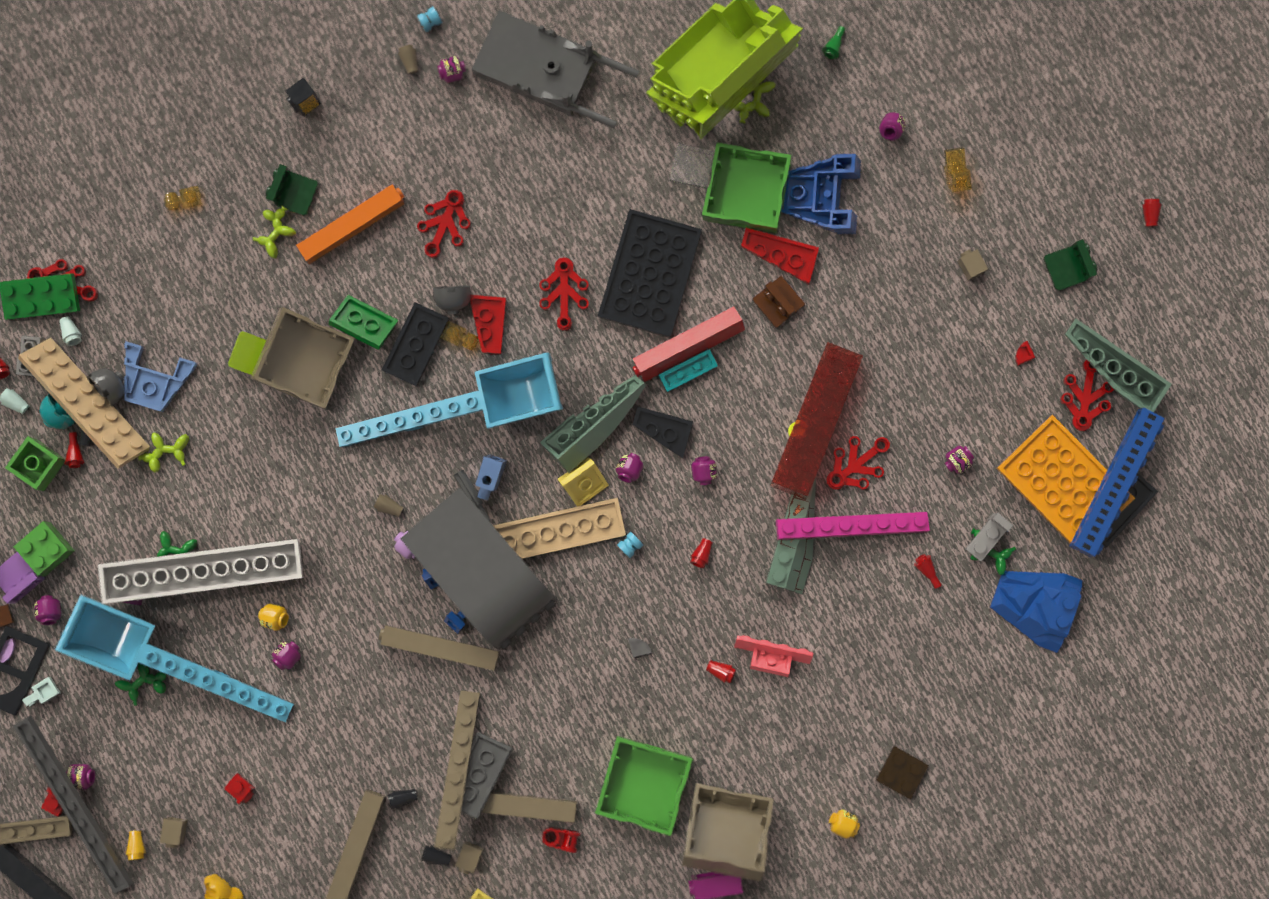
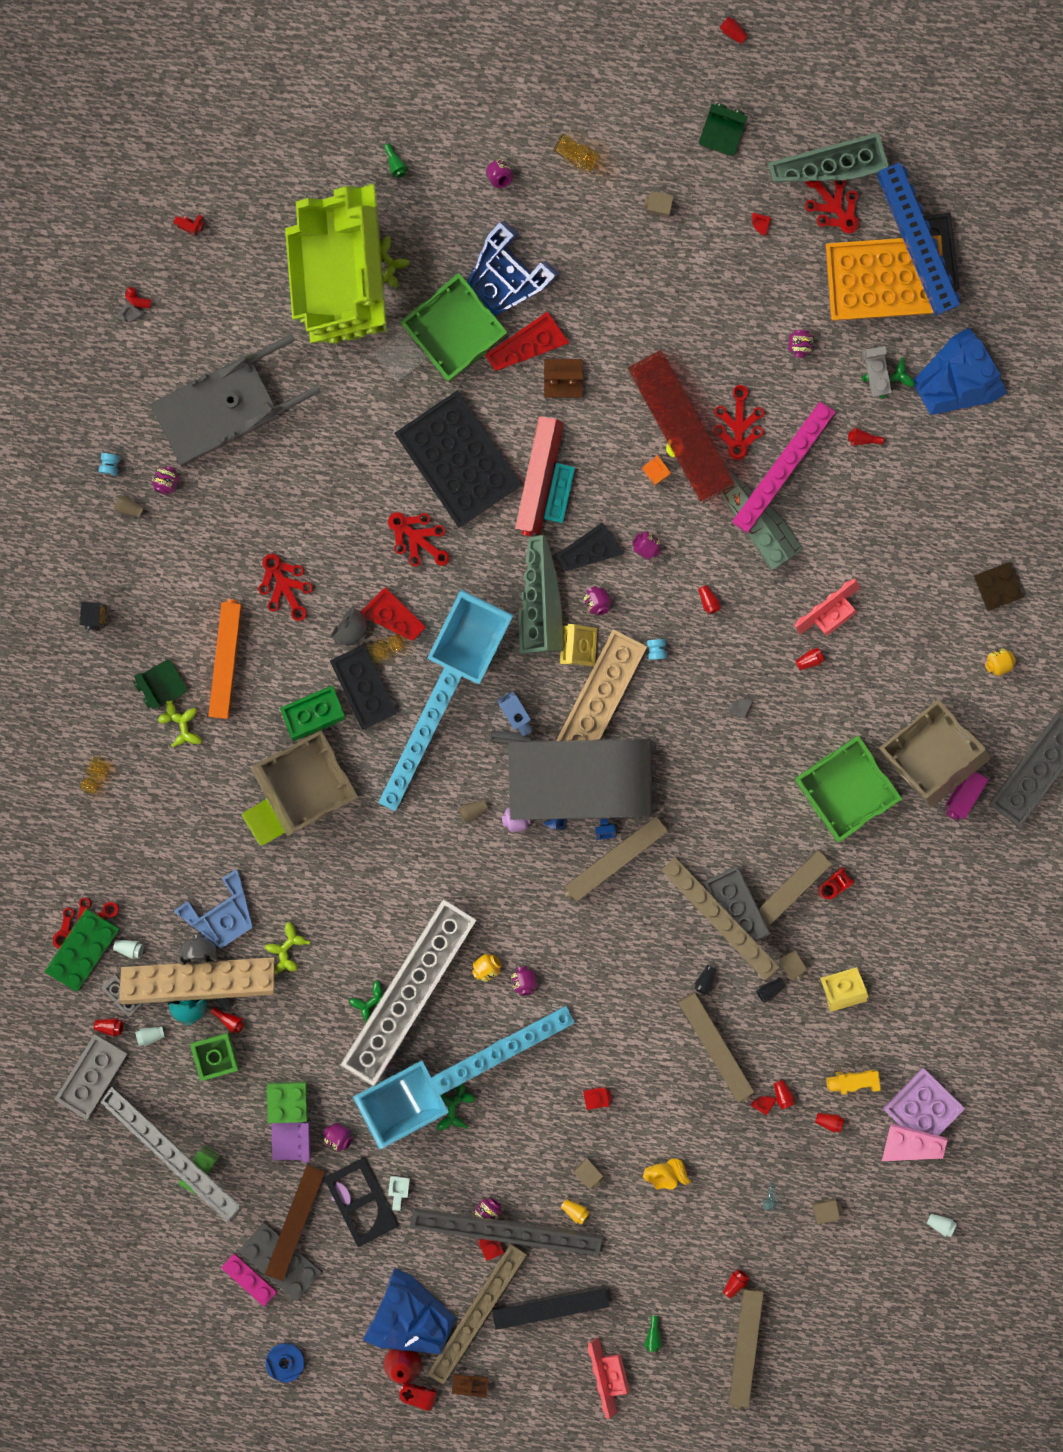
camera: 50 degrees left, 5 degrees up
(767, 430) = (656, 470): none -> orange panel

